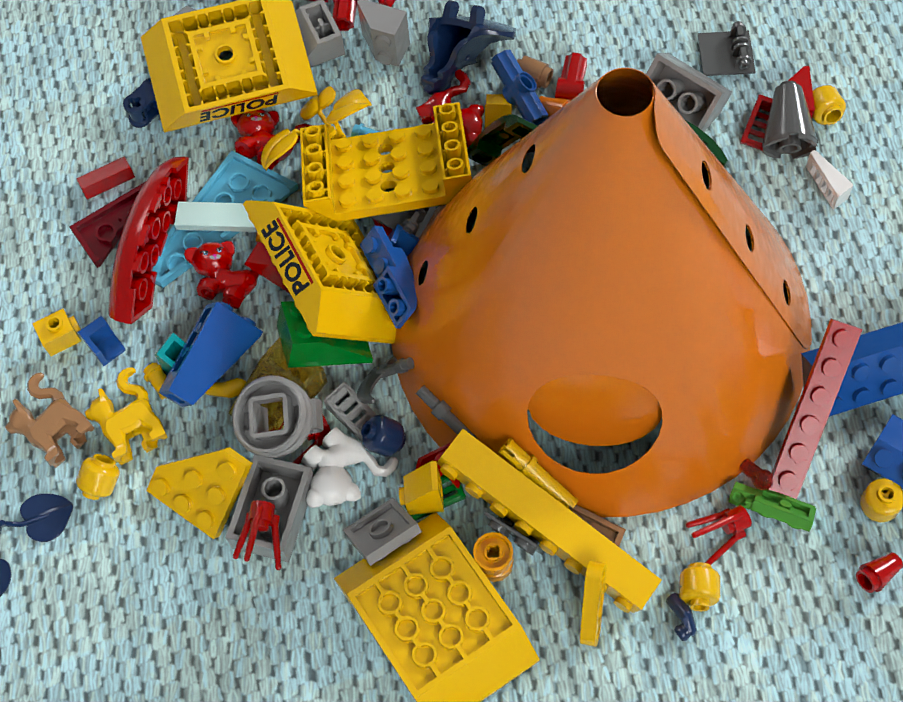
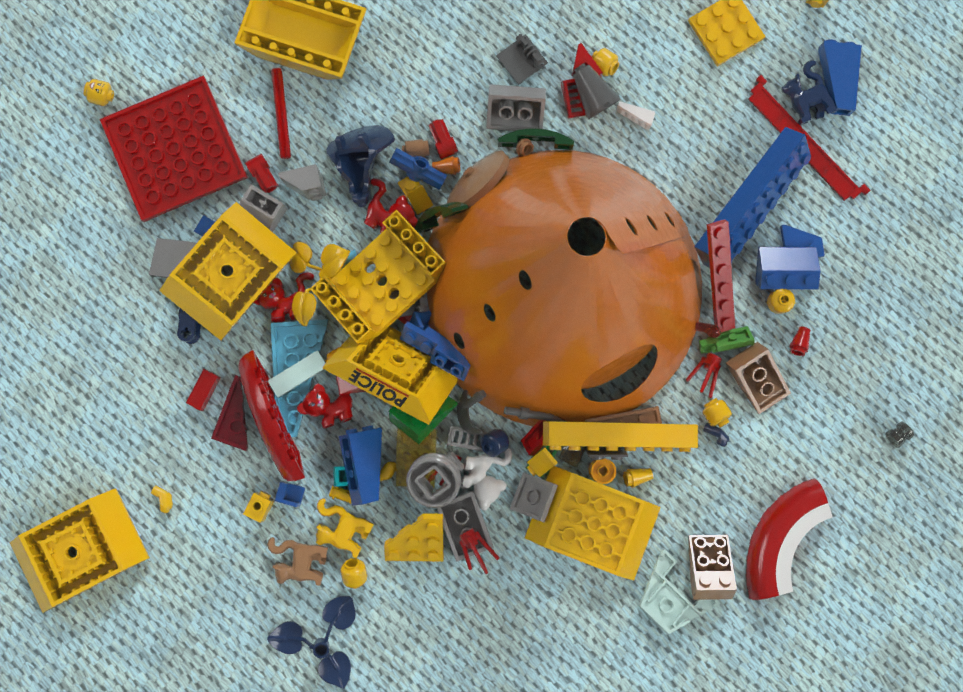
camera: 40 degrees left, 20 degrees up
(470, 513) = (571, 457): none -> clear smoke plate
(531, 469) = (594, 414): yellow pin -> none
(535, 599) = (635, 477): none -> yellow cone
(593, 603) = (672, 462): yellow beam -> none
(789, 581) = (758, 377): none -> medium nougat slope

